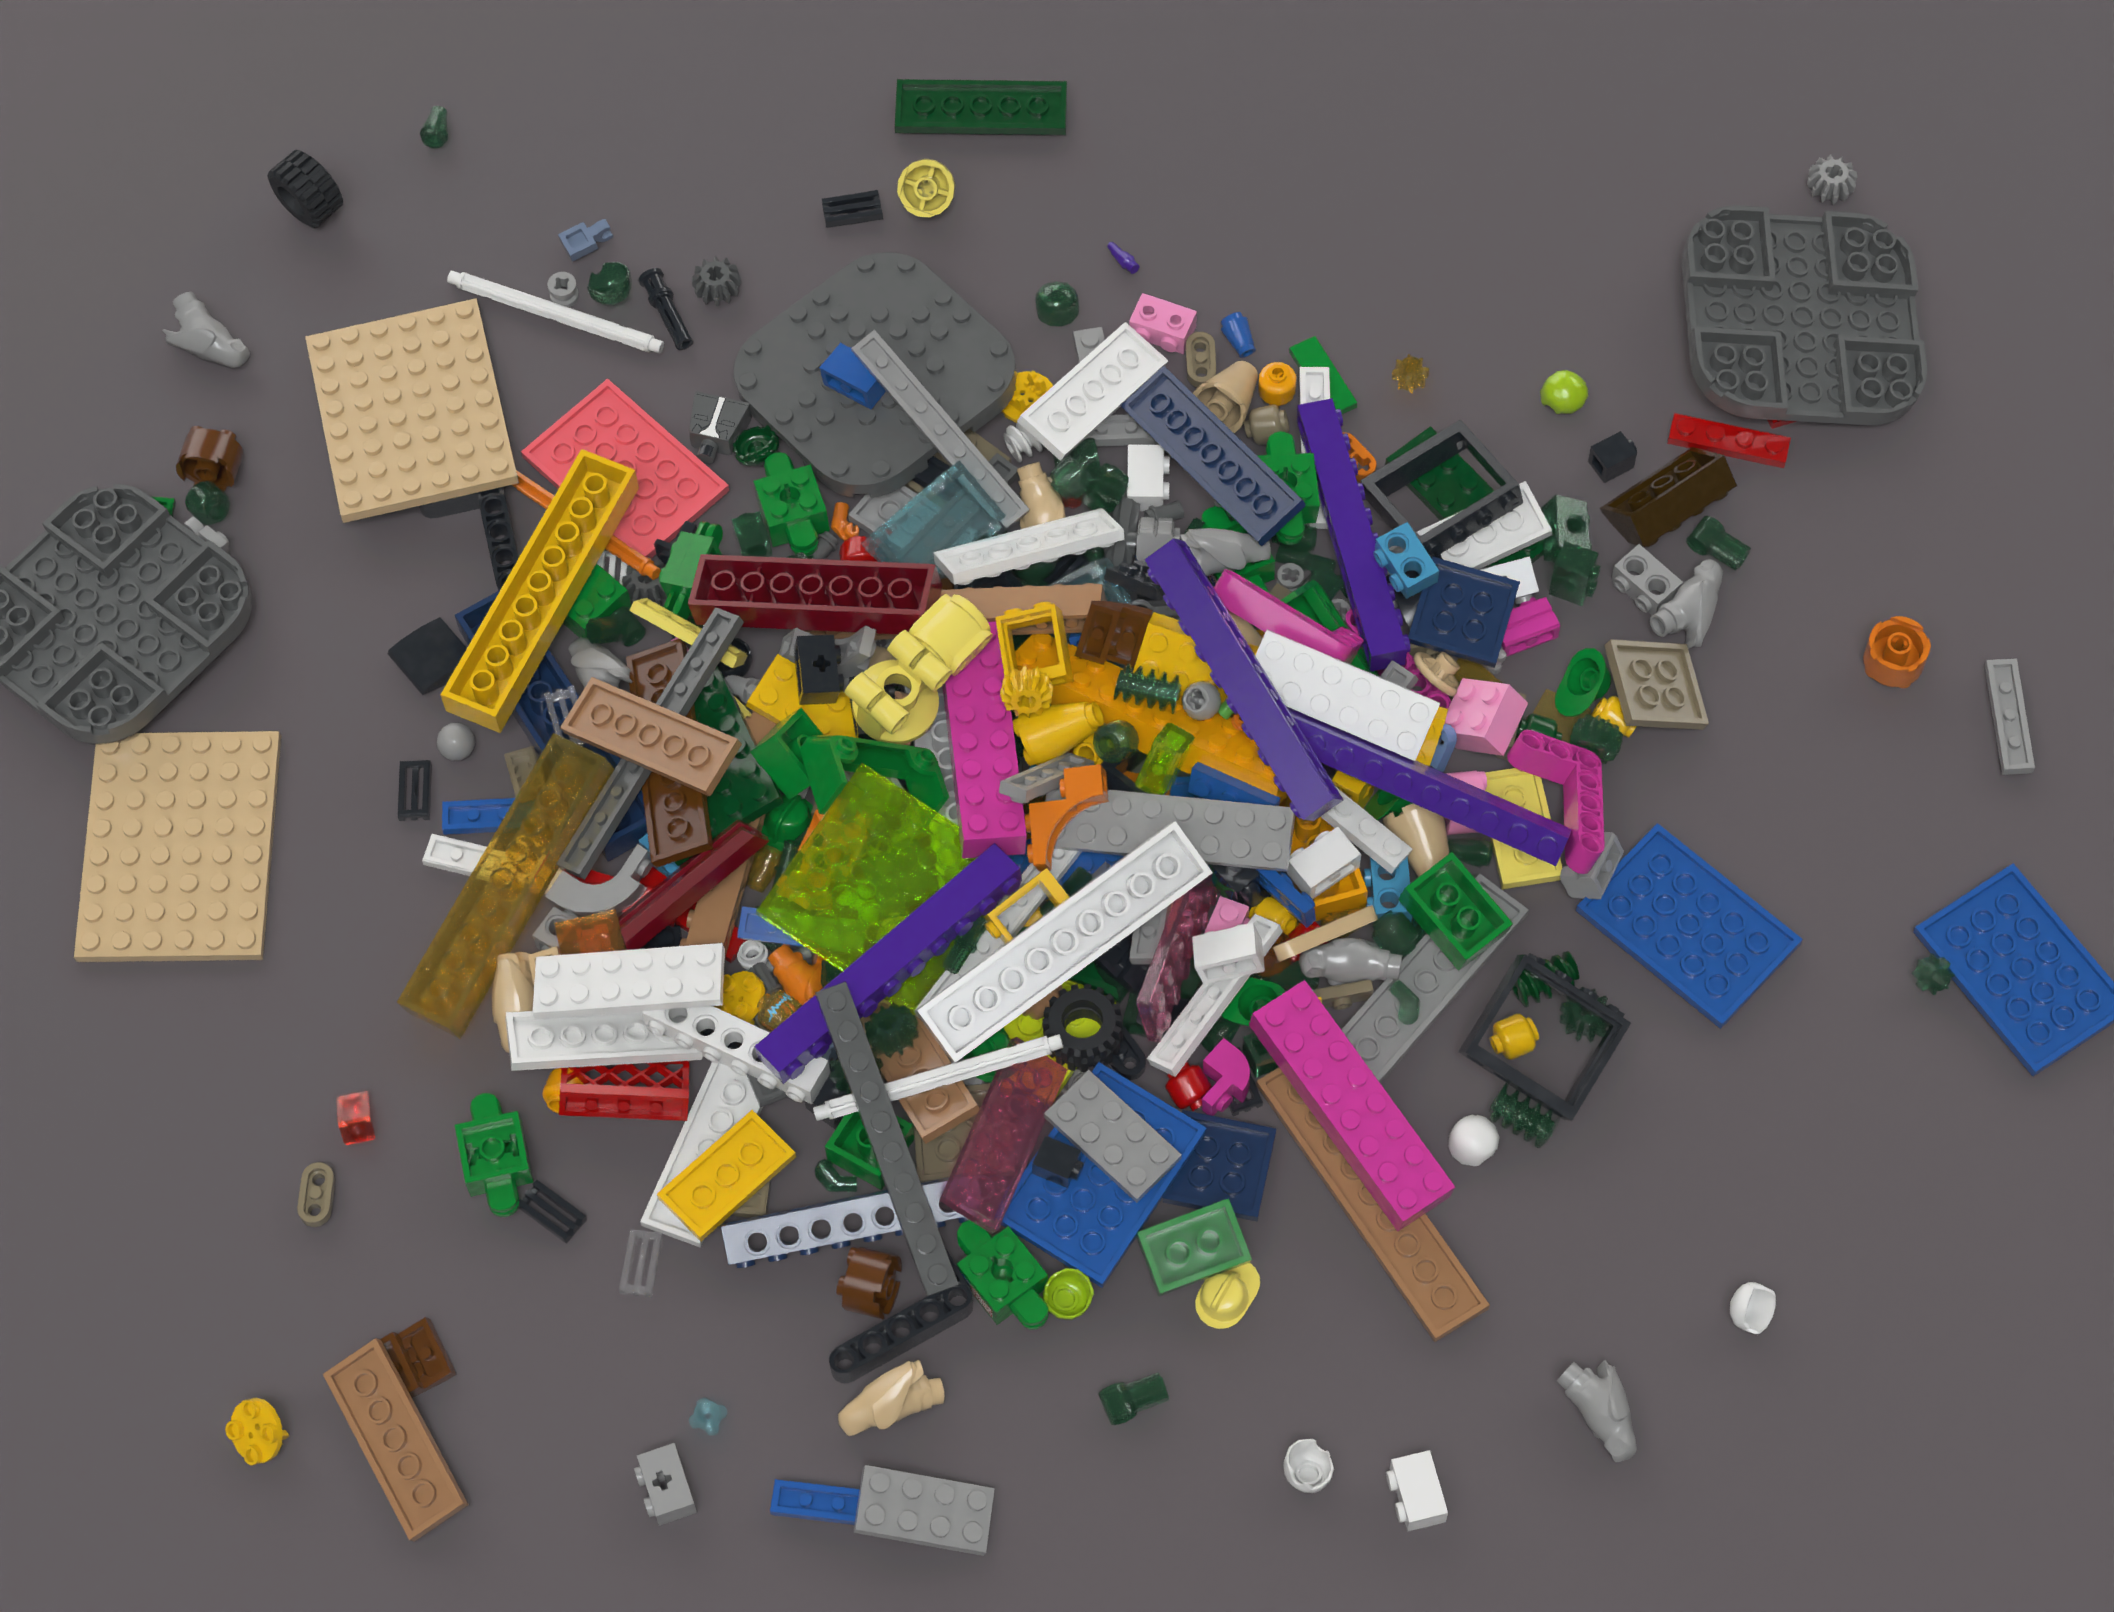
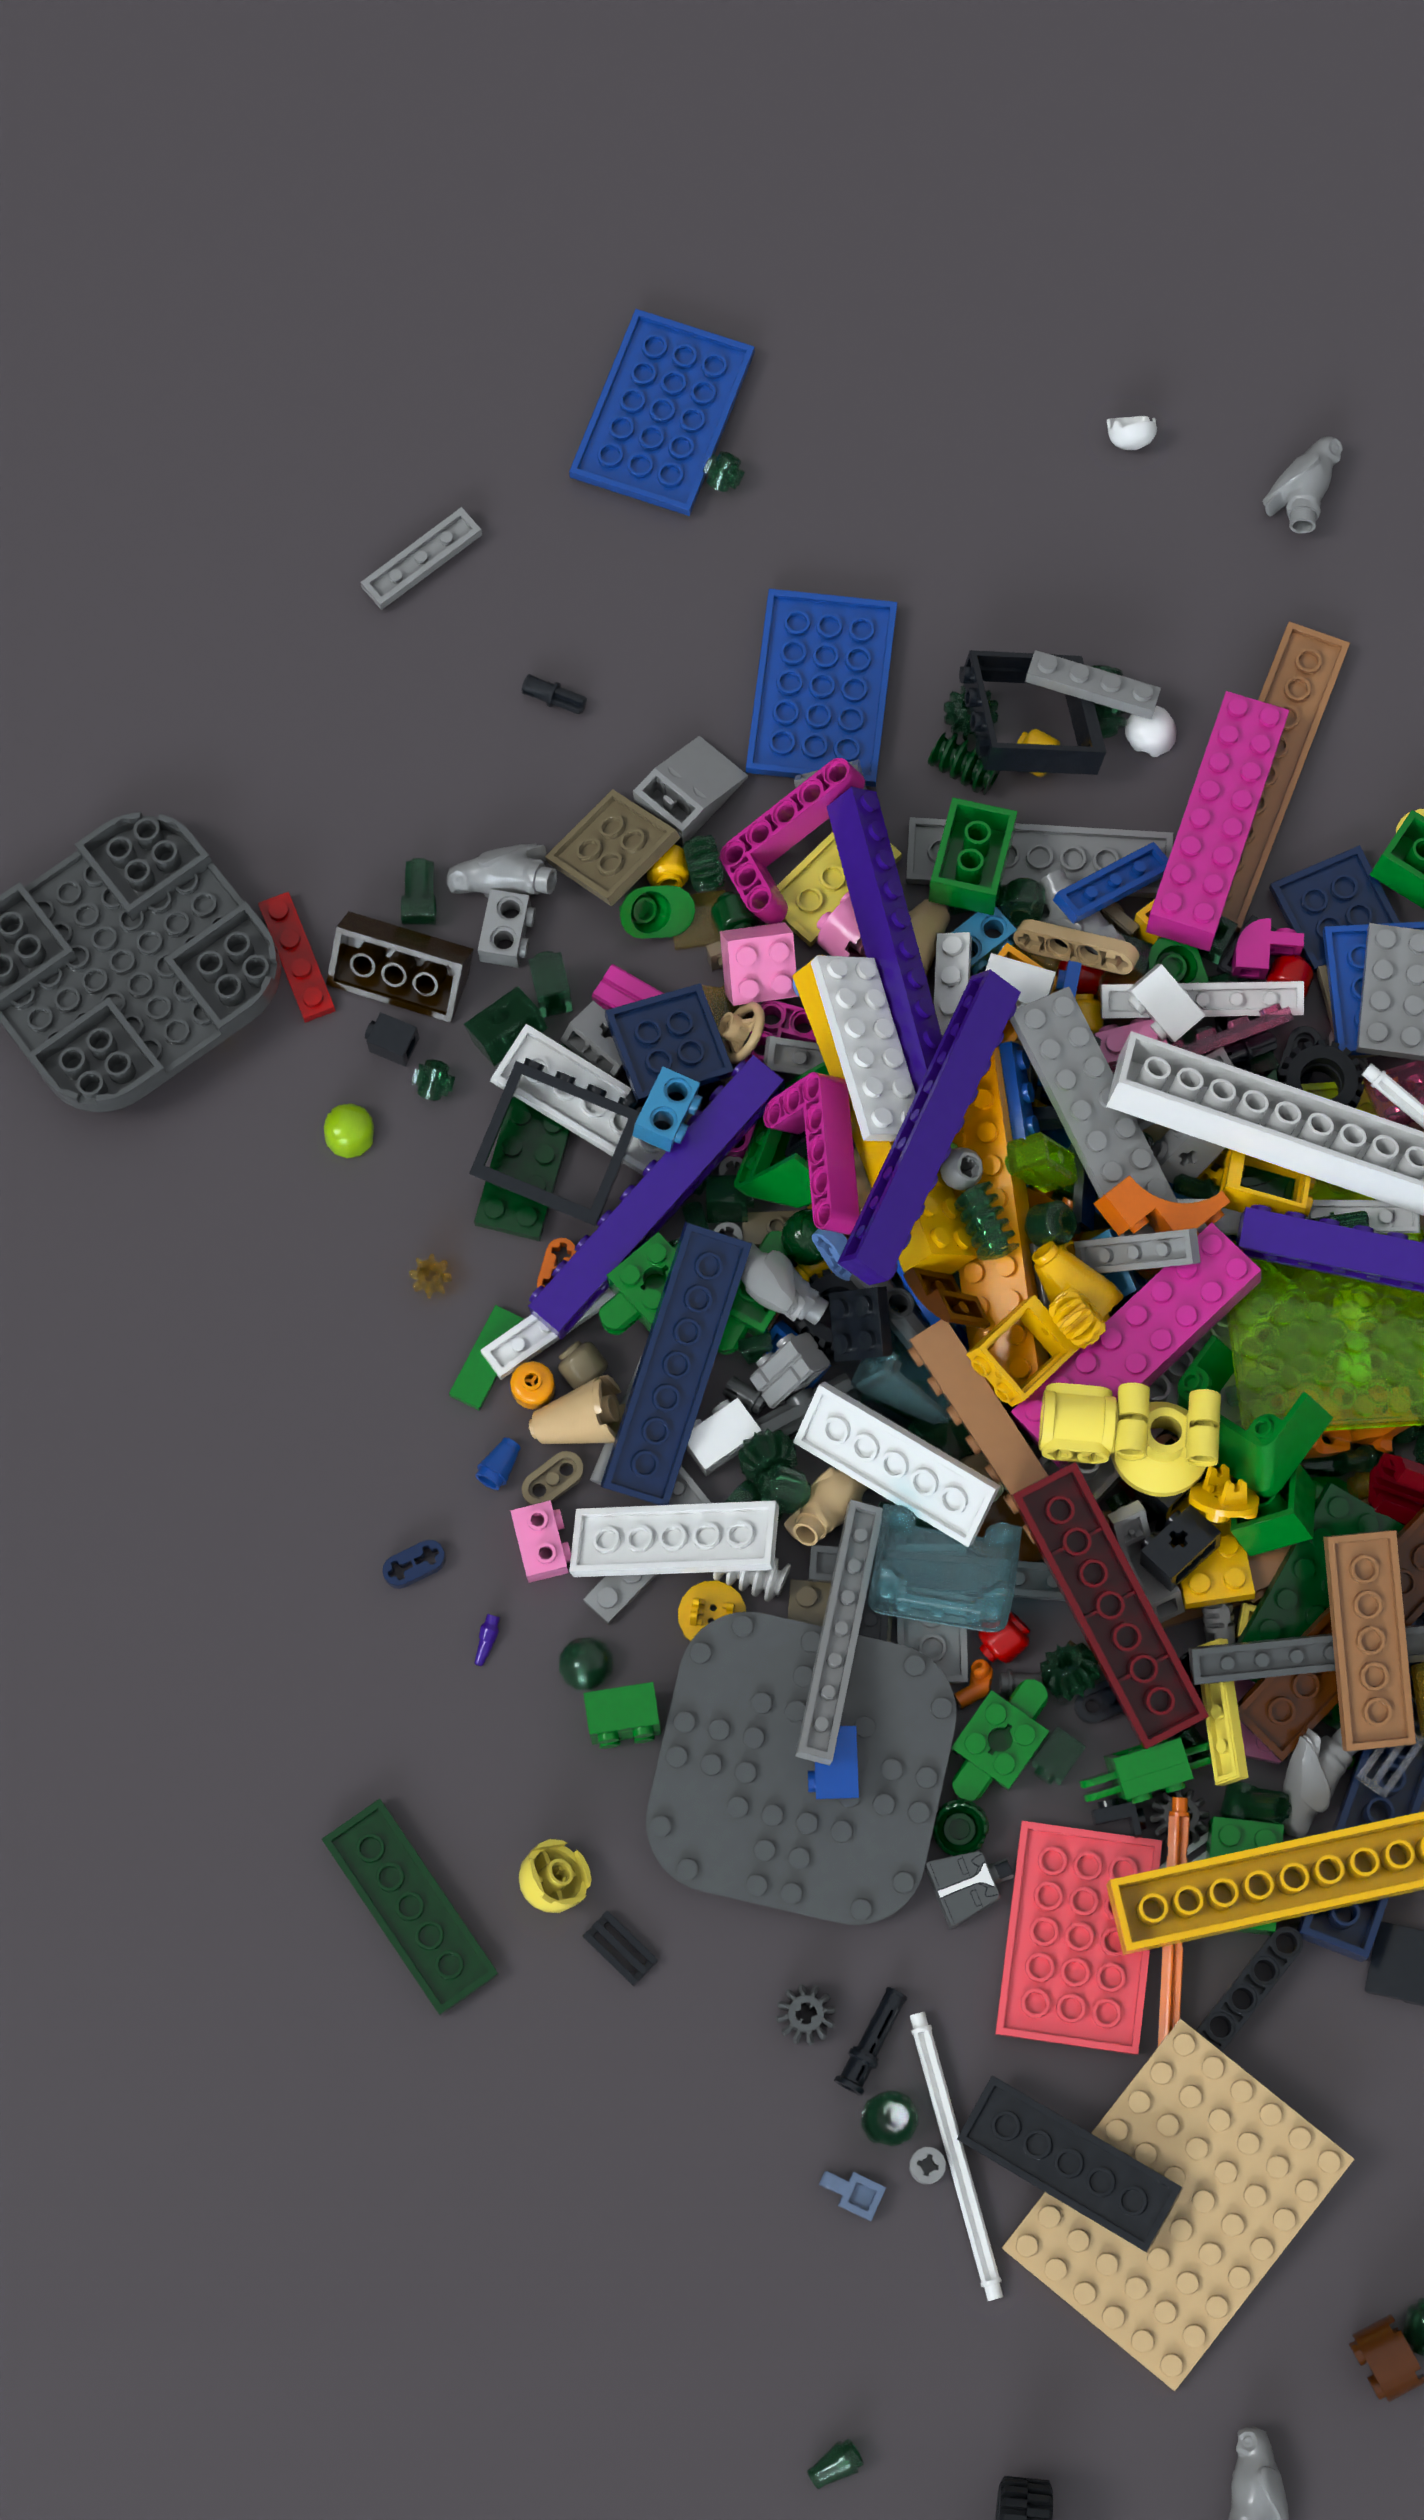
camera: 125 degrees left, 10 degrees up
(487, 353) = (1070, 2164): none -> black plate
(824, 710) = (1223, 1498): none -> yellow plate
(1001, 288) = (622, 1715): none -> green brick
(1205, 245) = (409, 1557): none -> dark blue beam
(1357, 990) = (1112, 883): none -> blue plate
(1409, 1003) = (1079, 849): clear green arm -> none
(1535, 1096) = (1093, 684): none -> light grey plate
(1559, 461) = (433, 1079): none -> clear green gear
(1669, 772) = (689, 787): none -> light grey slope
(1821, 735) = (553, 694): none -> black axle
(1896, 652) = (434, 693): orange brick -> none

